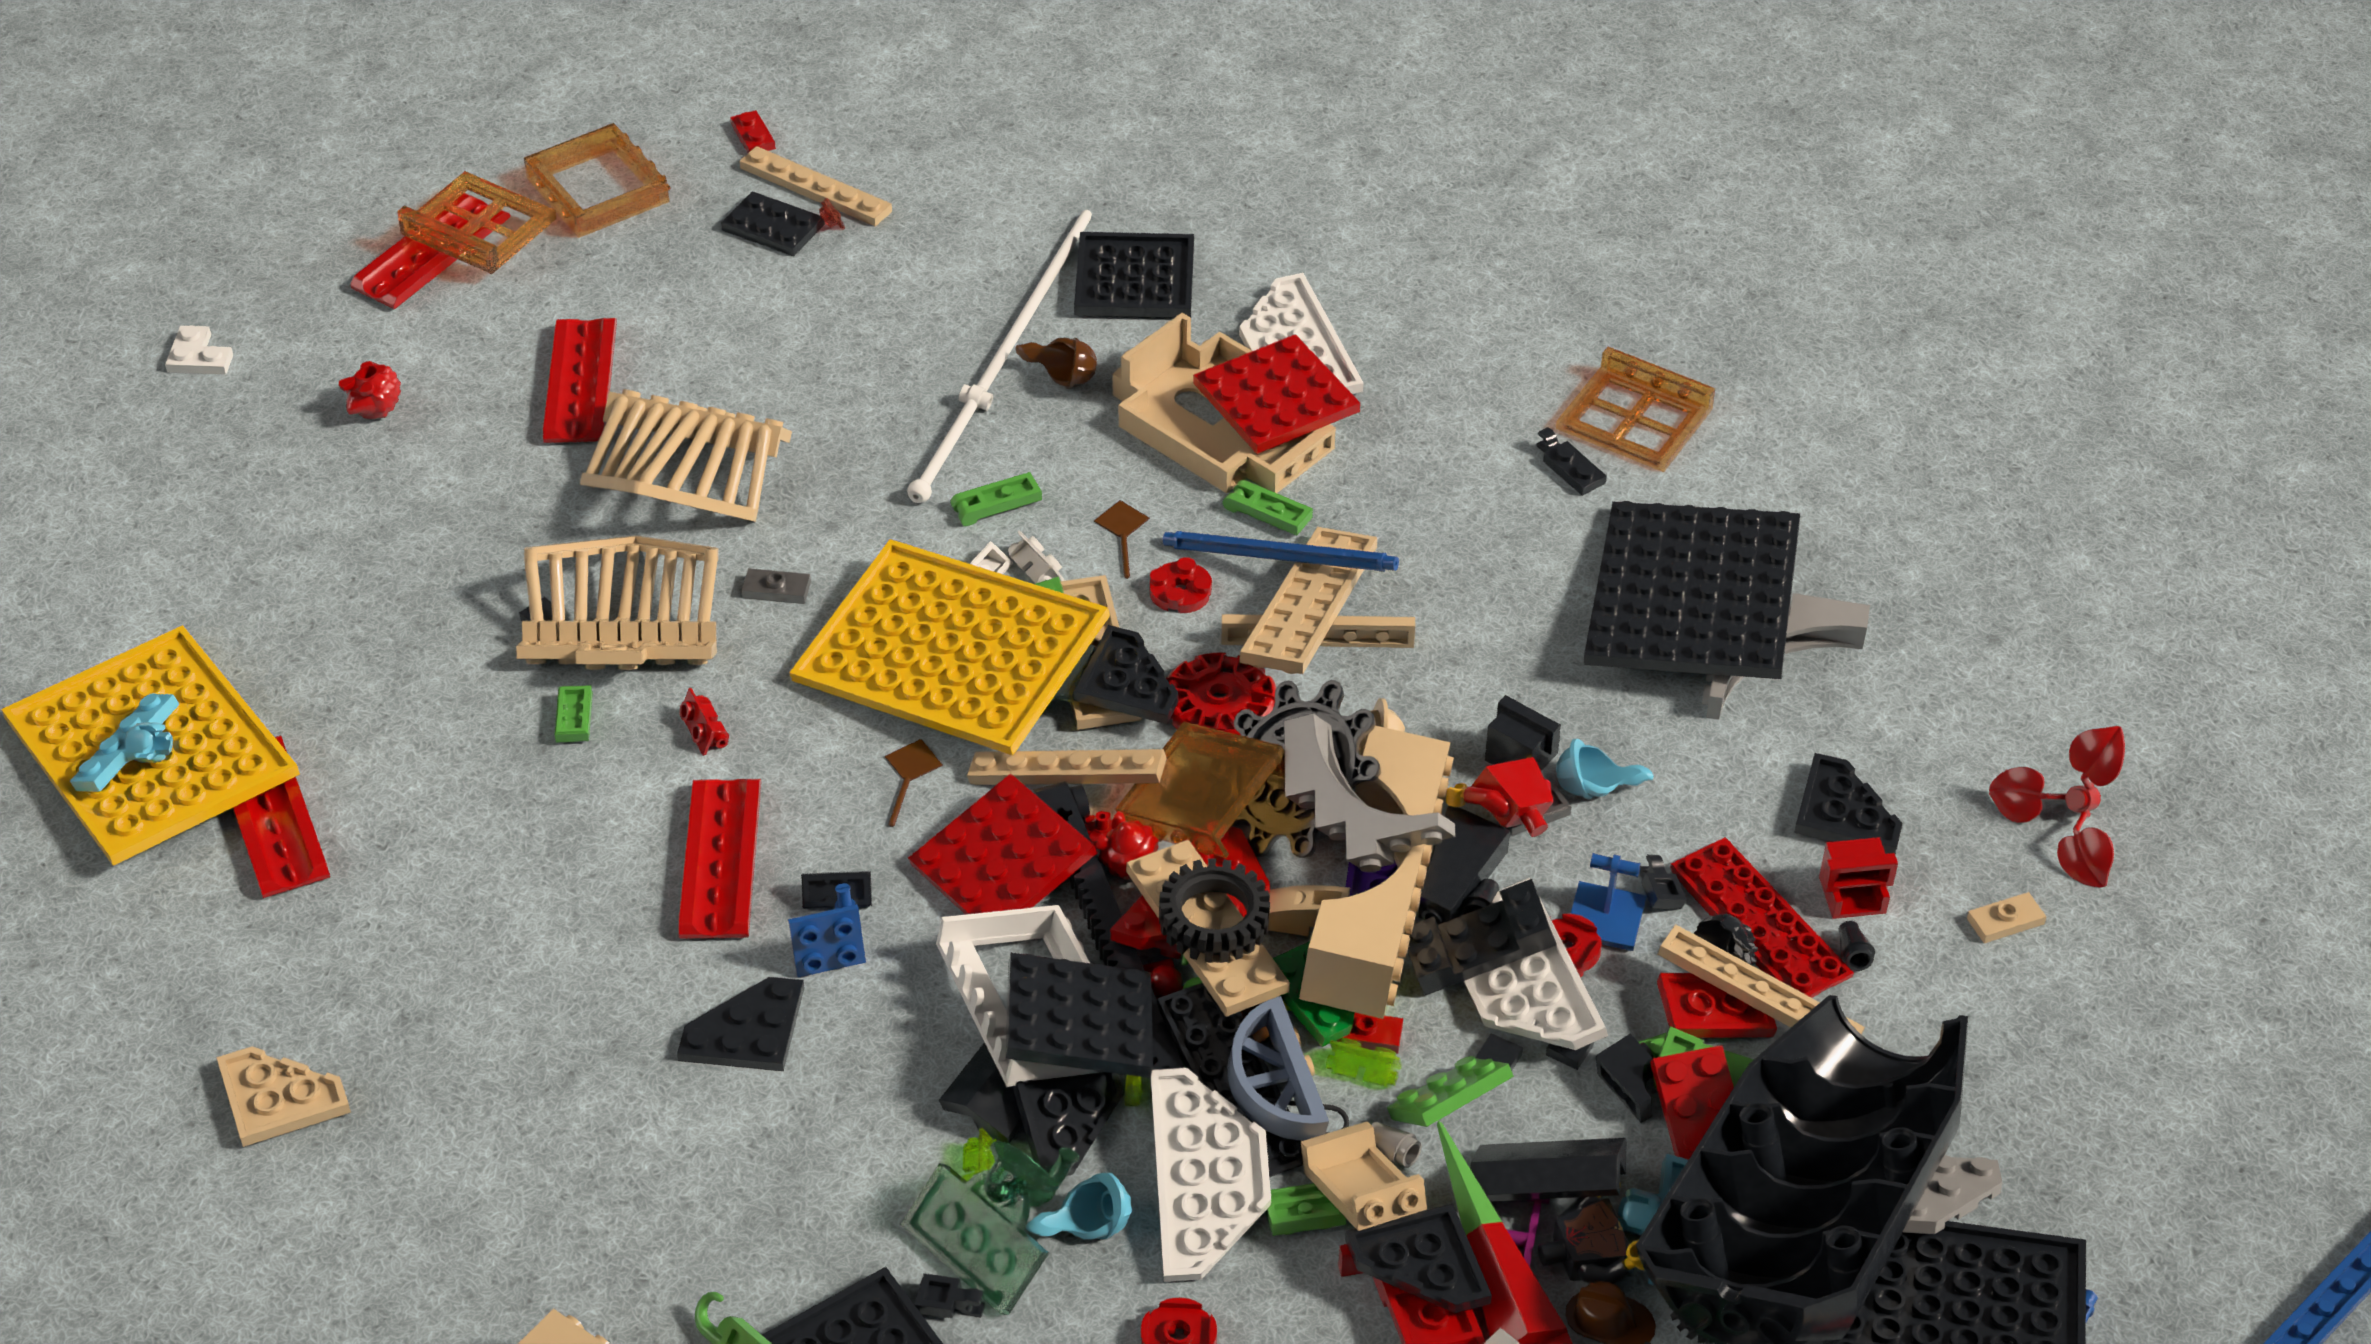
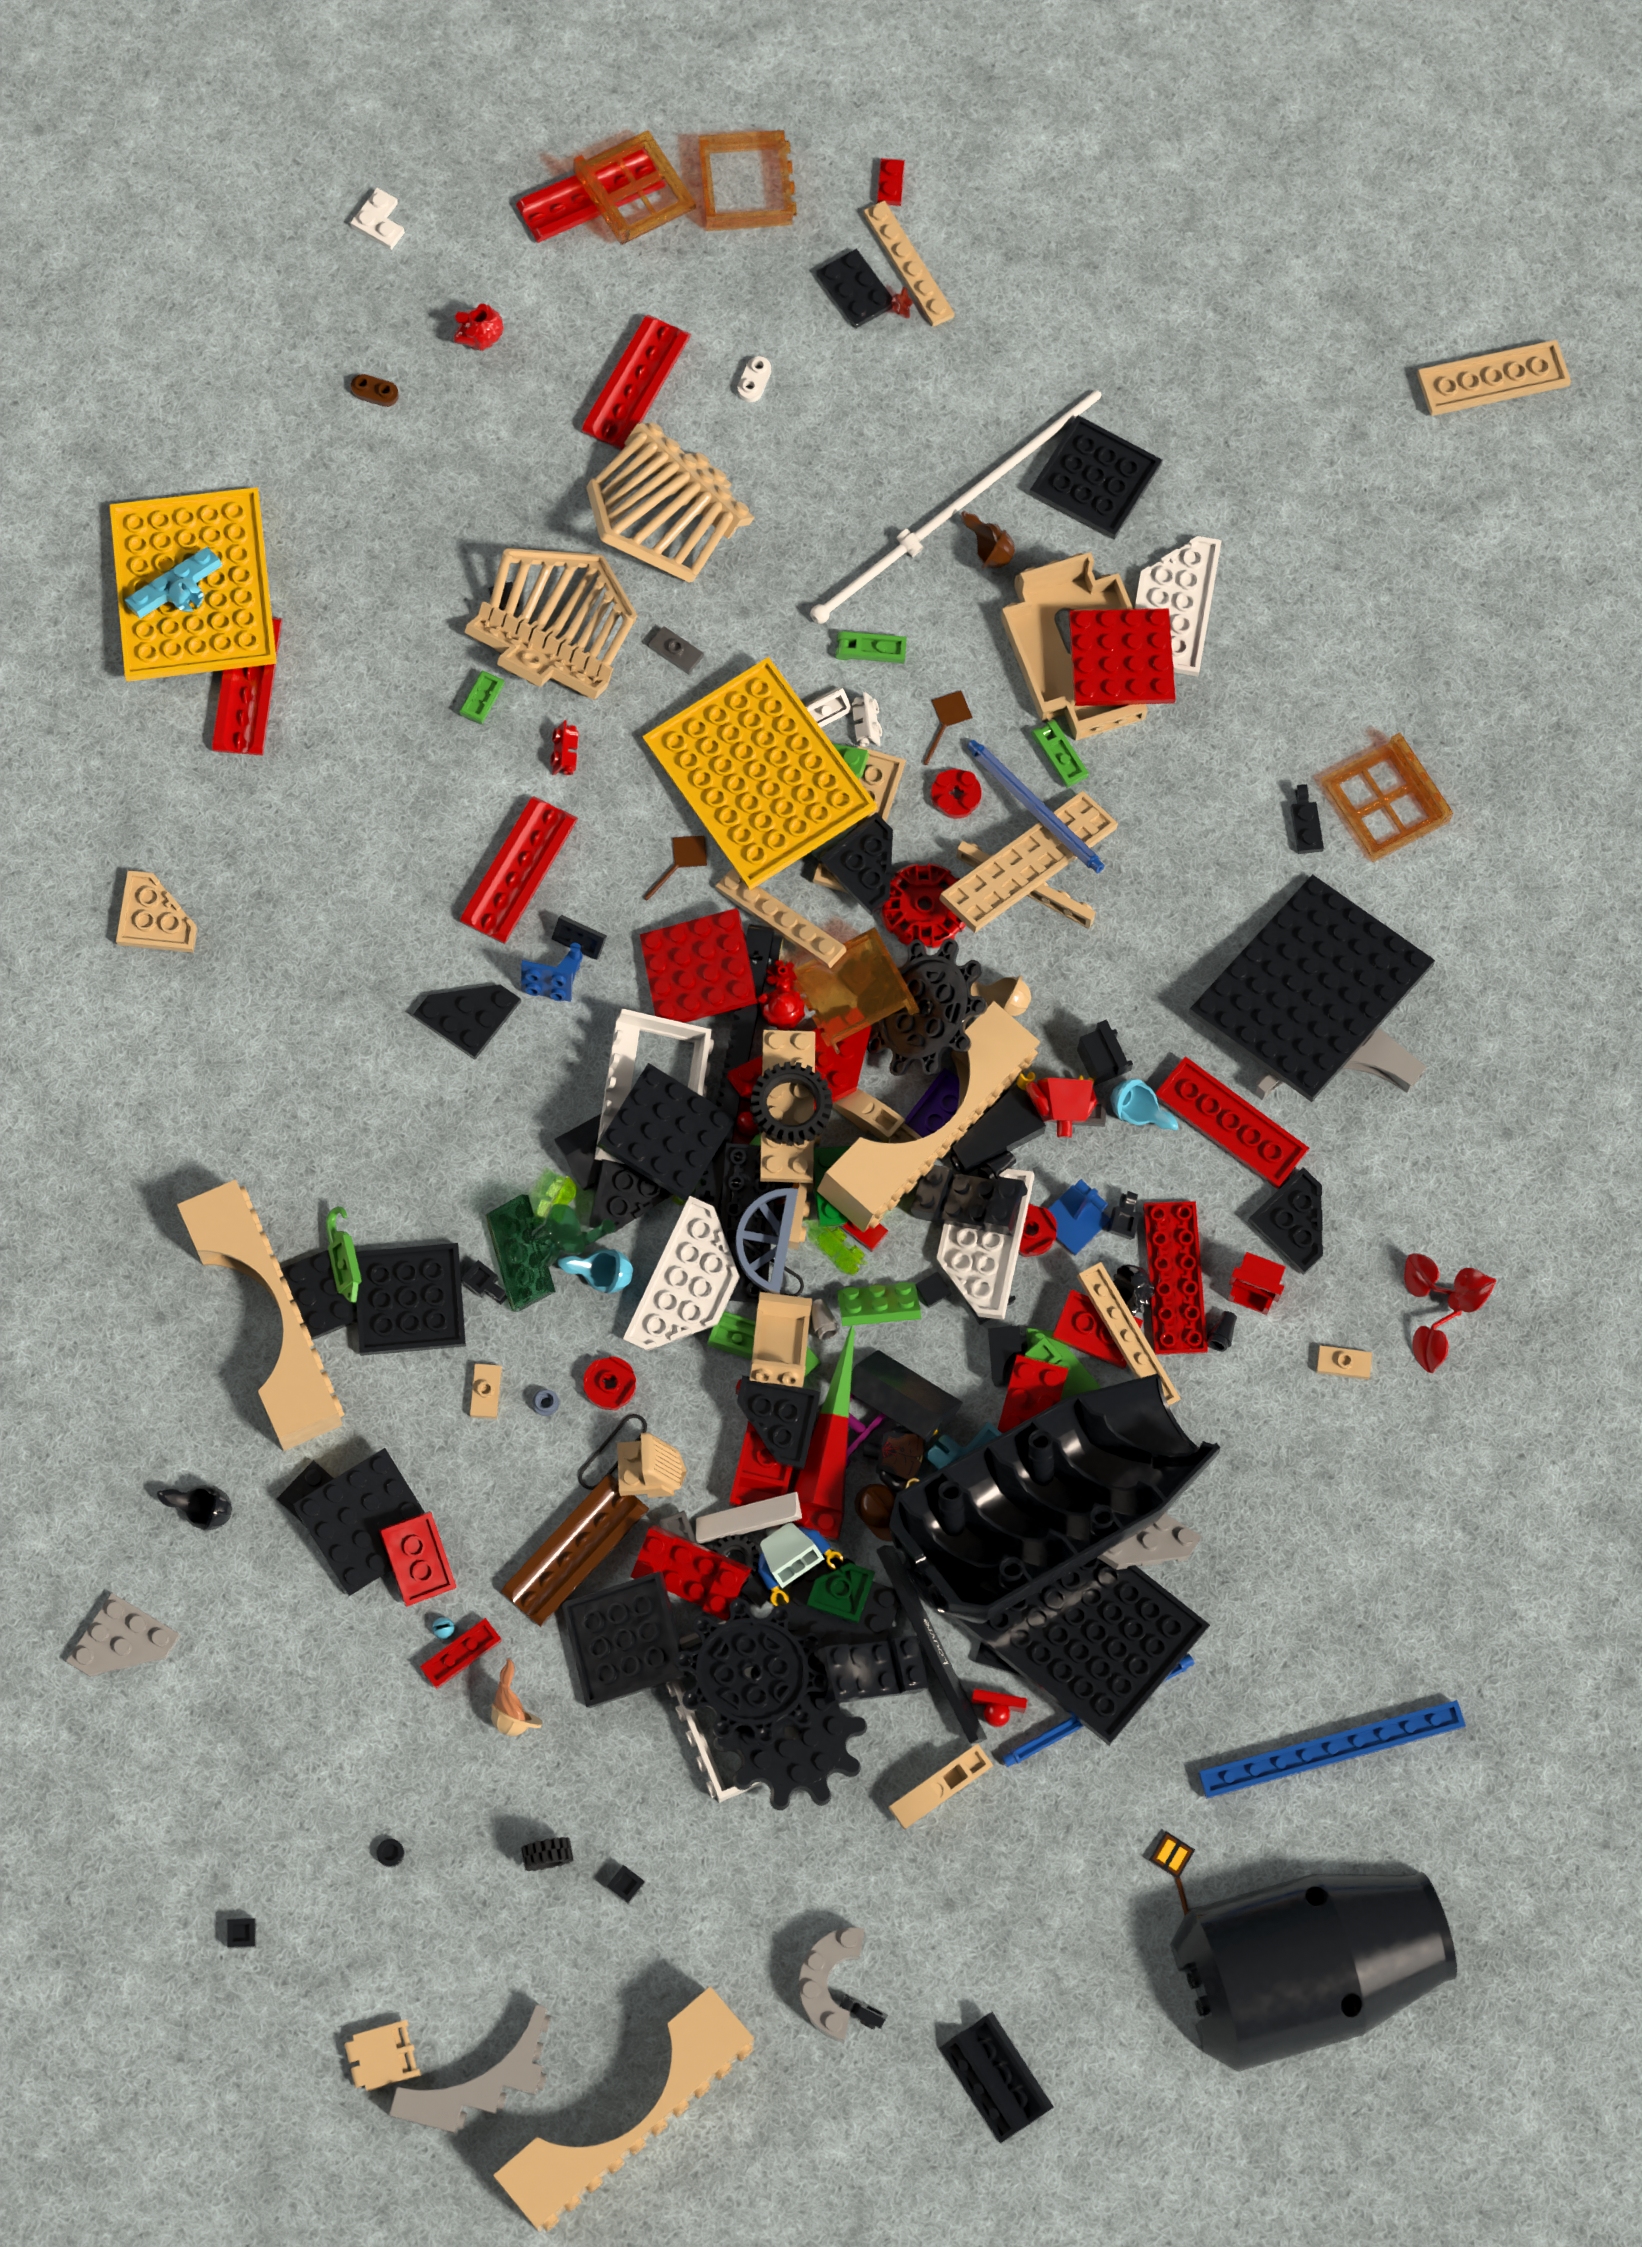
camera: 25 degrees right, 25 degrees up
(276, 494) = (373, 390): none -> reddish brown plate
(711, 331) = (754, 377): none -> white plate
(1317, 782) = (925, 1033): light grey arch -> none
(1469, 63) = (1493, 377): none -> tan plate
(1706, 748) = (1231, 1122): none -> red plate

